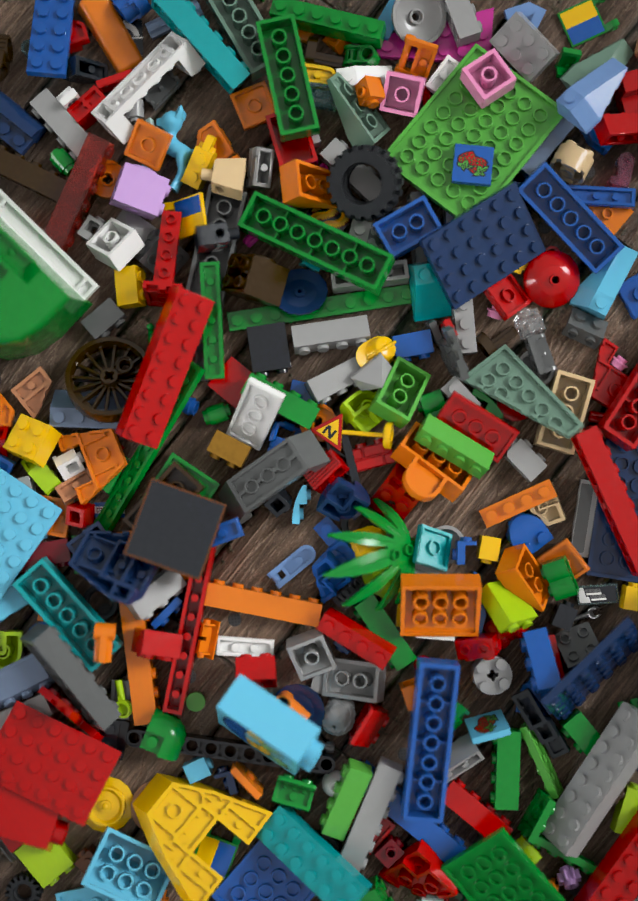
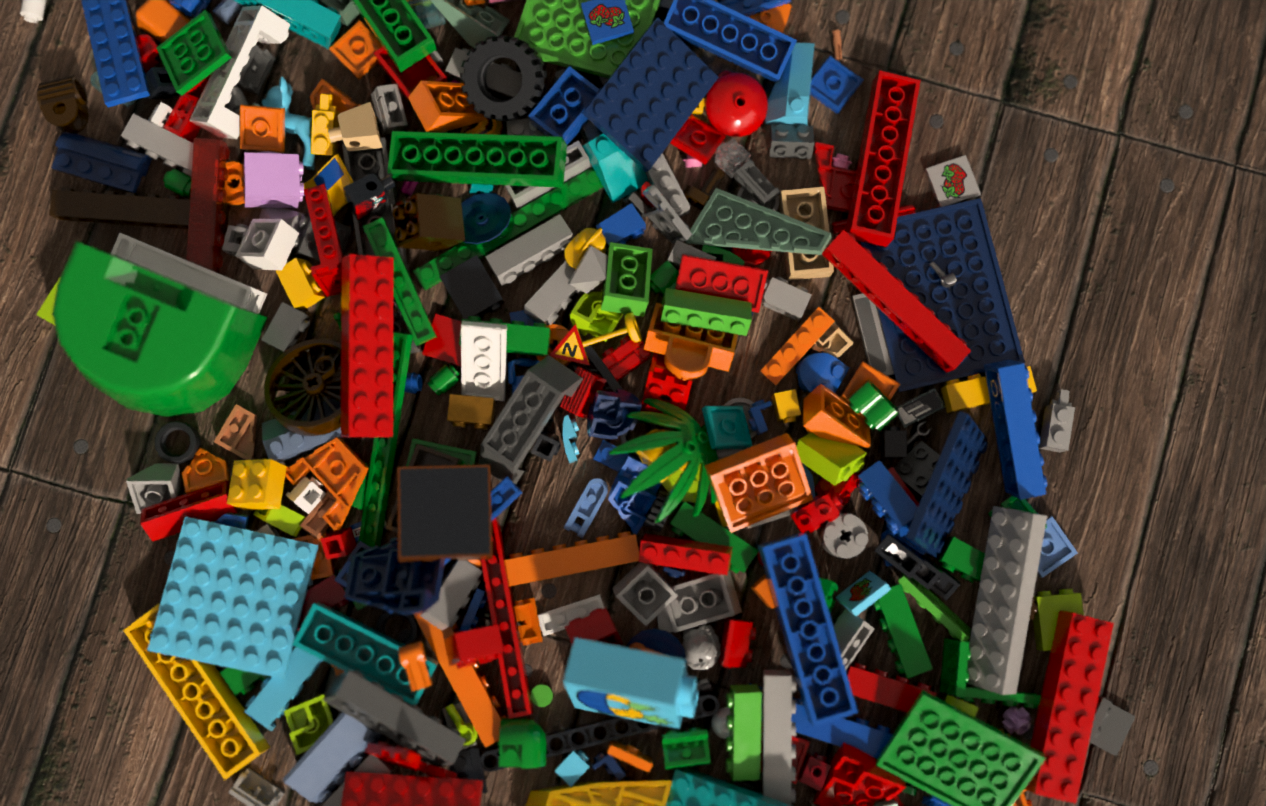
camera: 25 degrees left, 5 degrees down
(115, 56) = (193, 52): none -> green plate

